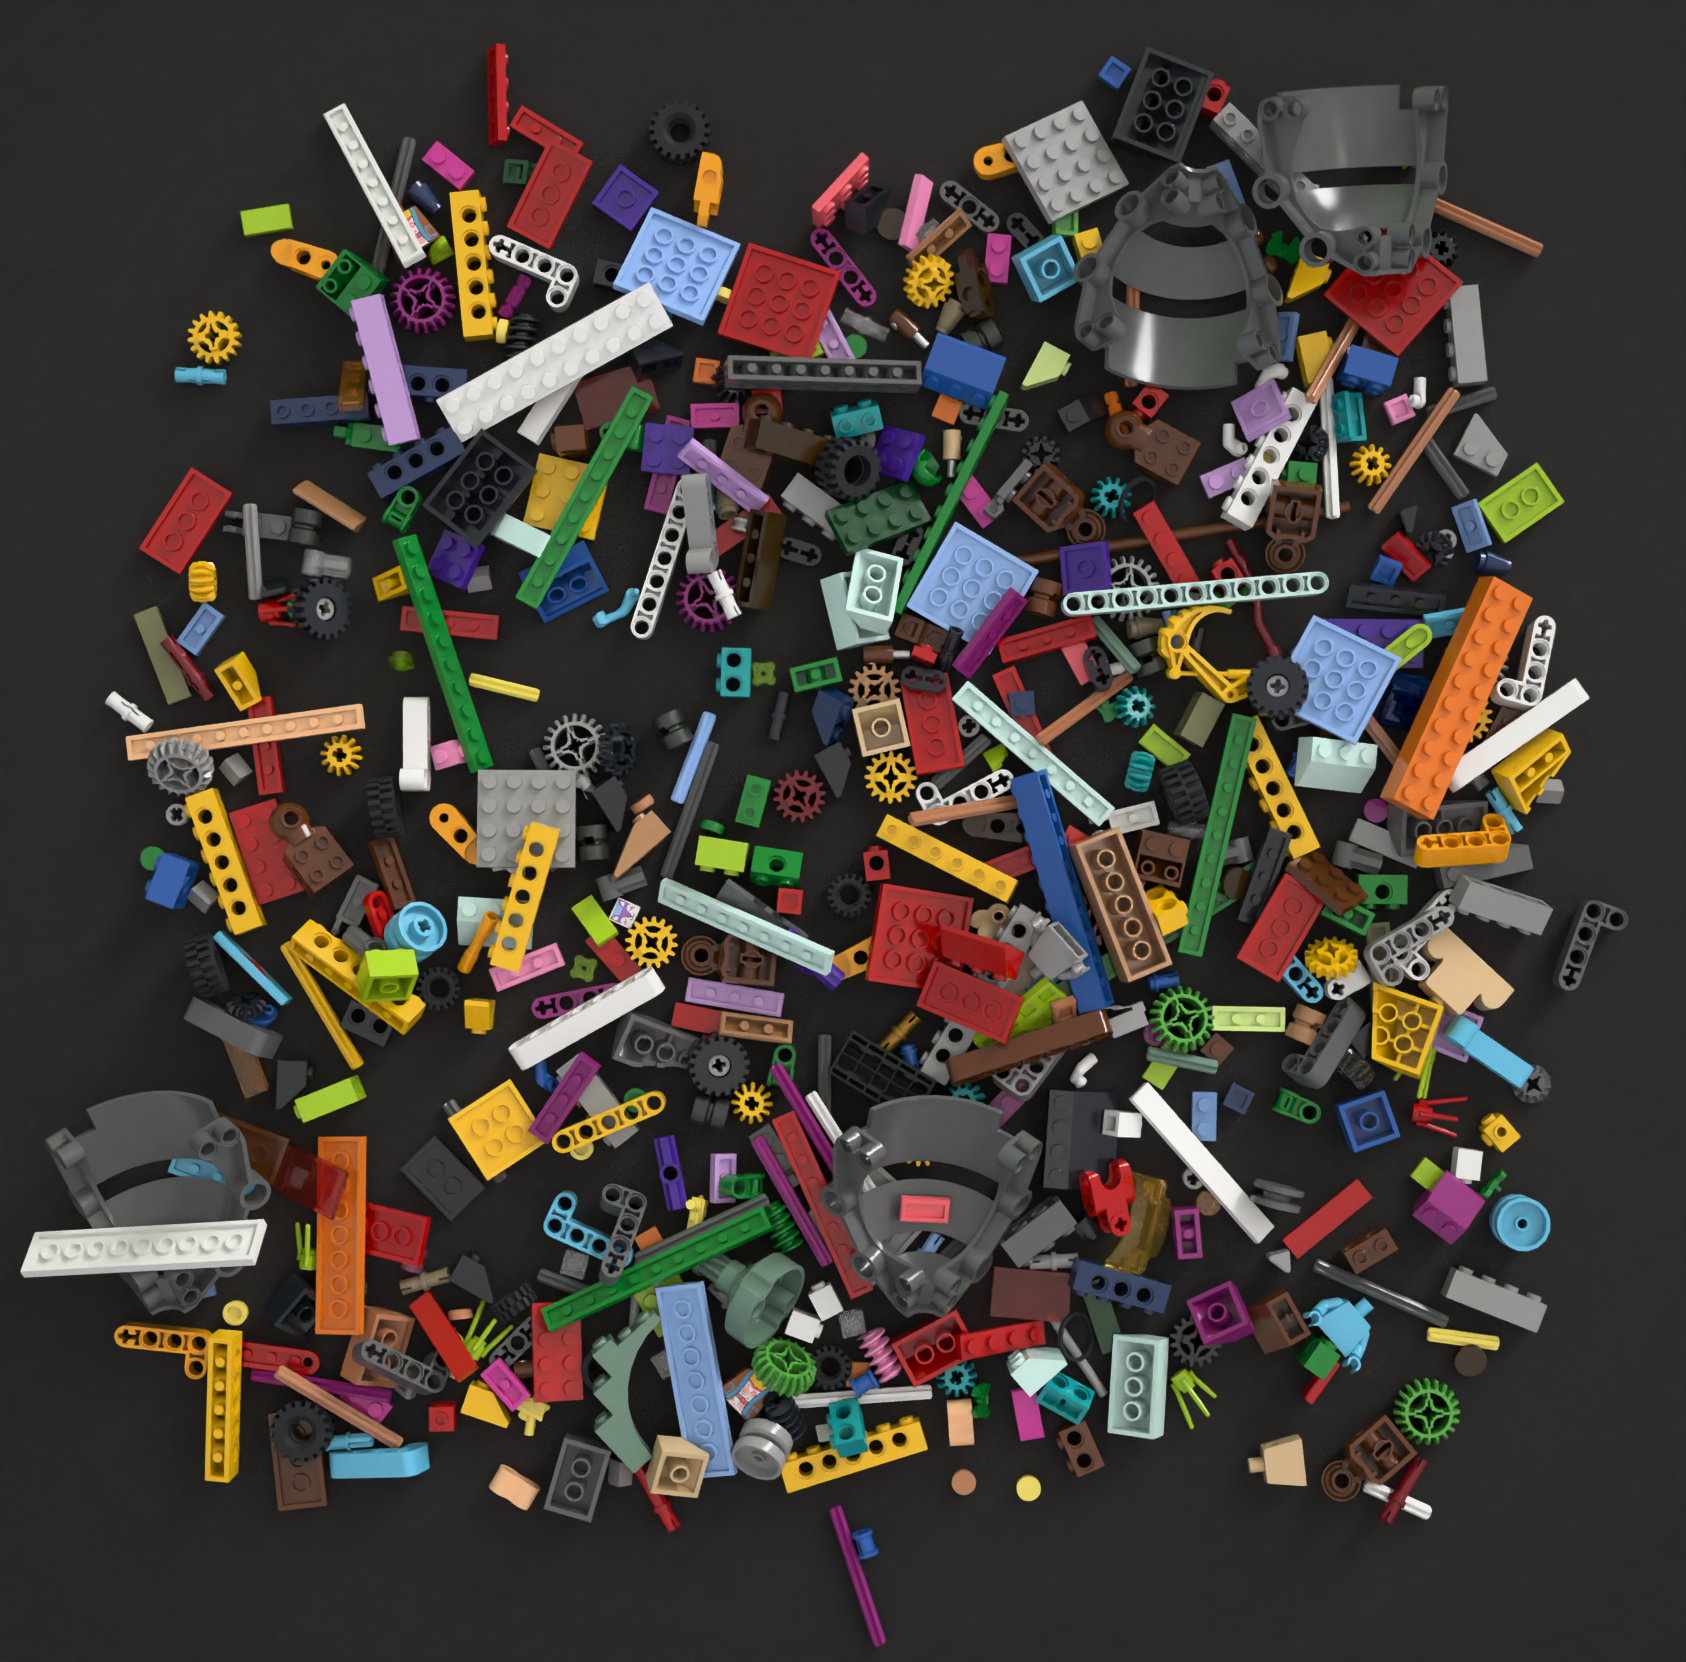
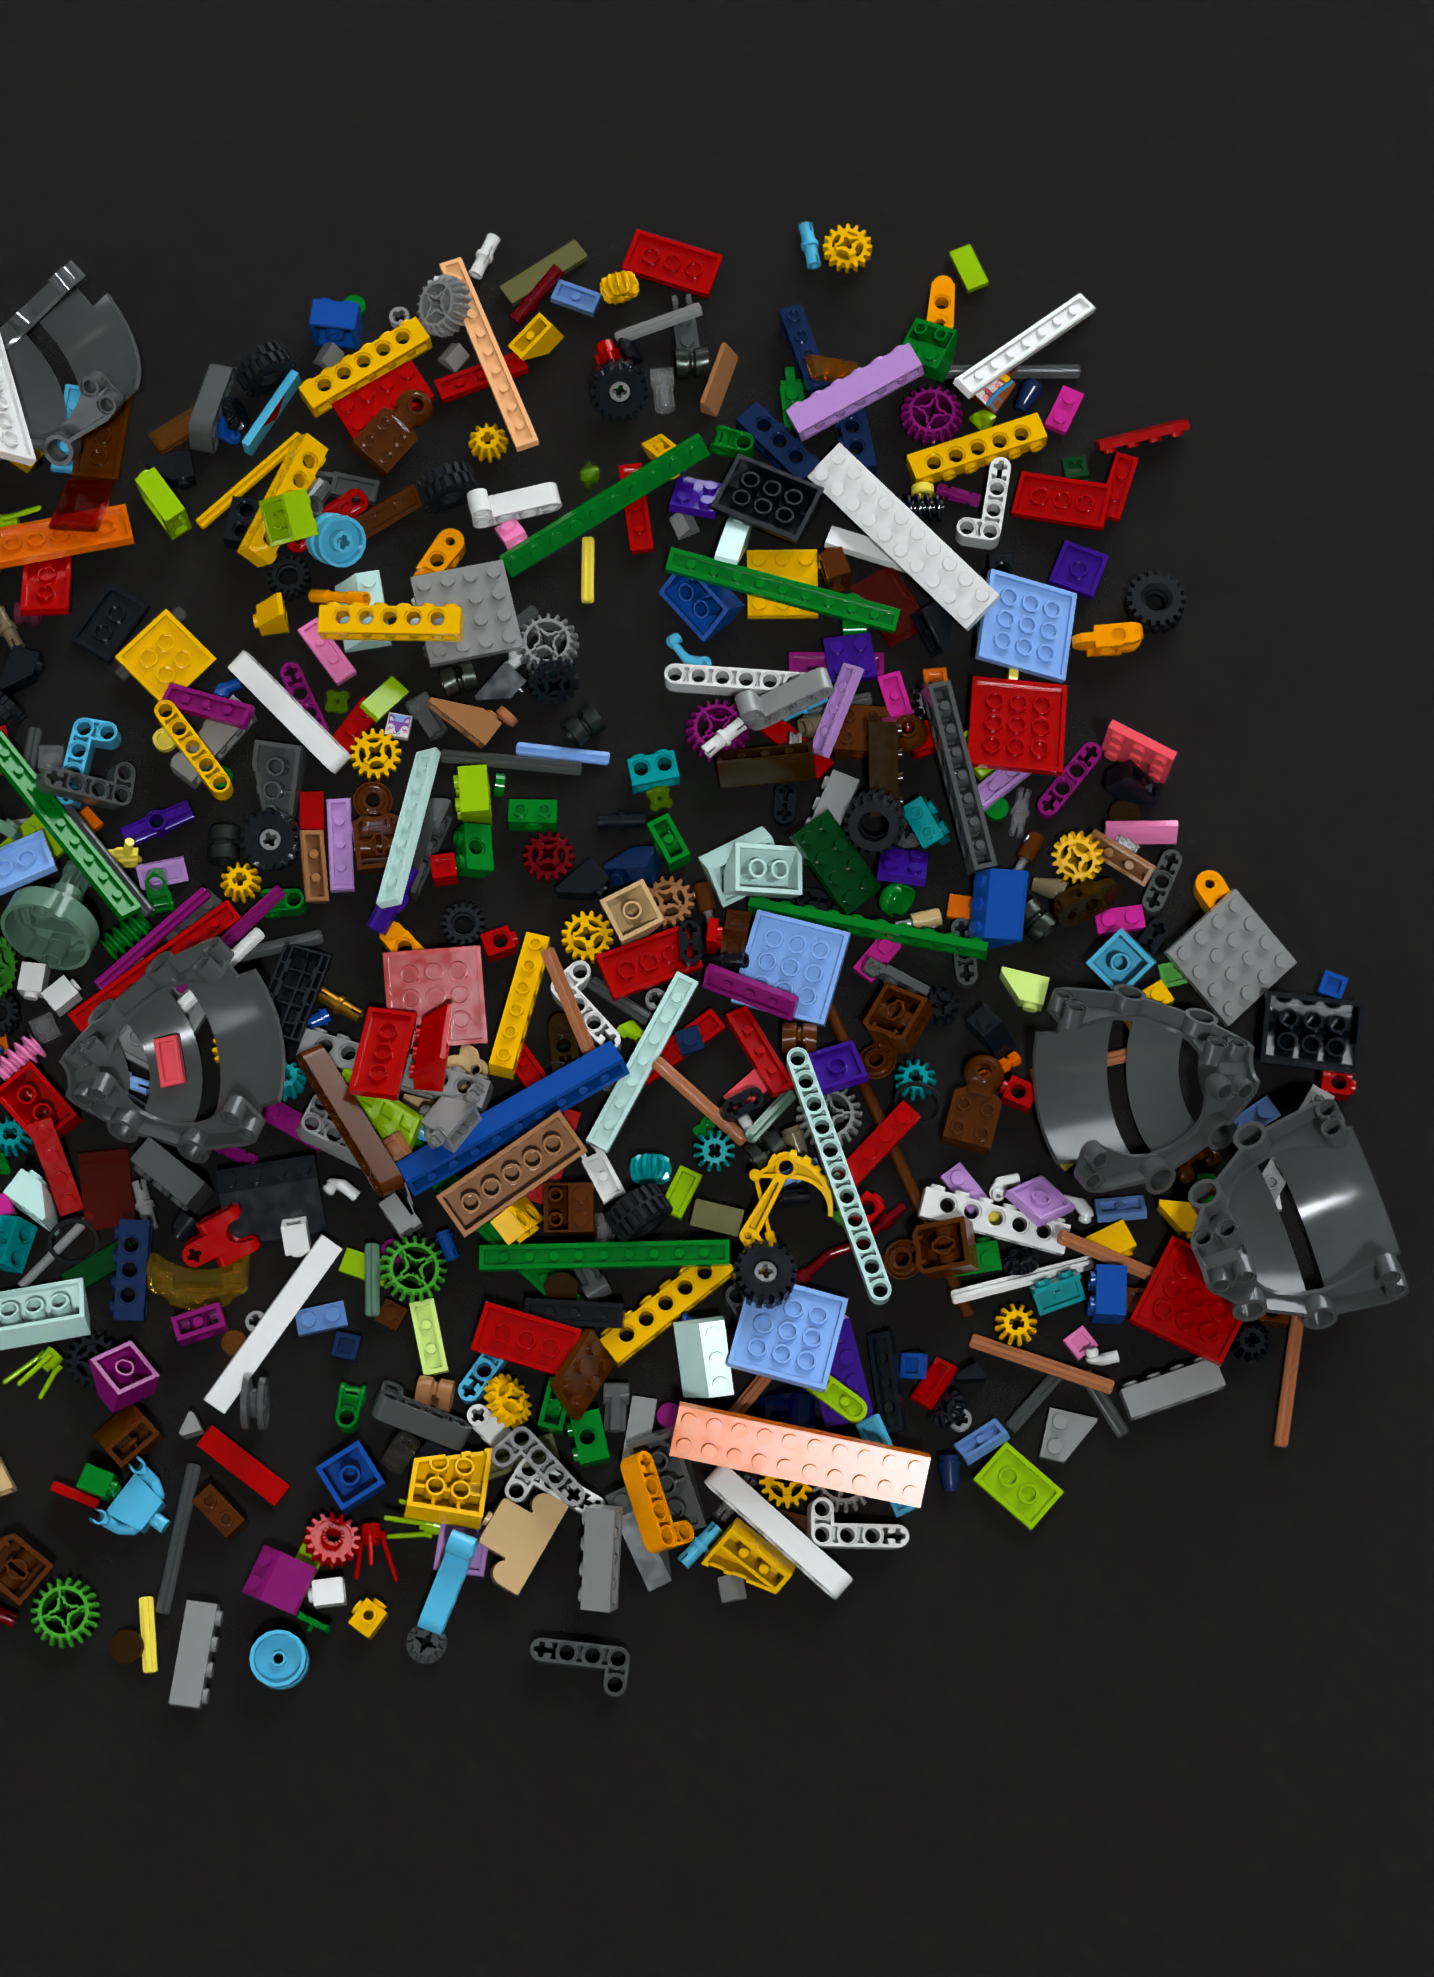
camera: 80 degrees right, 15 degrees down
(1427, 1162) = (331, 1528): none -> red gear

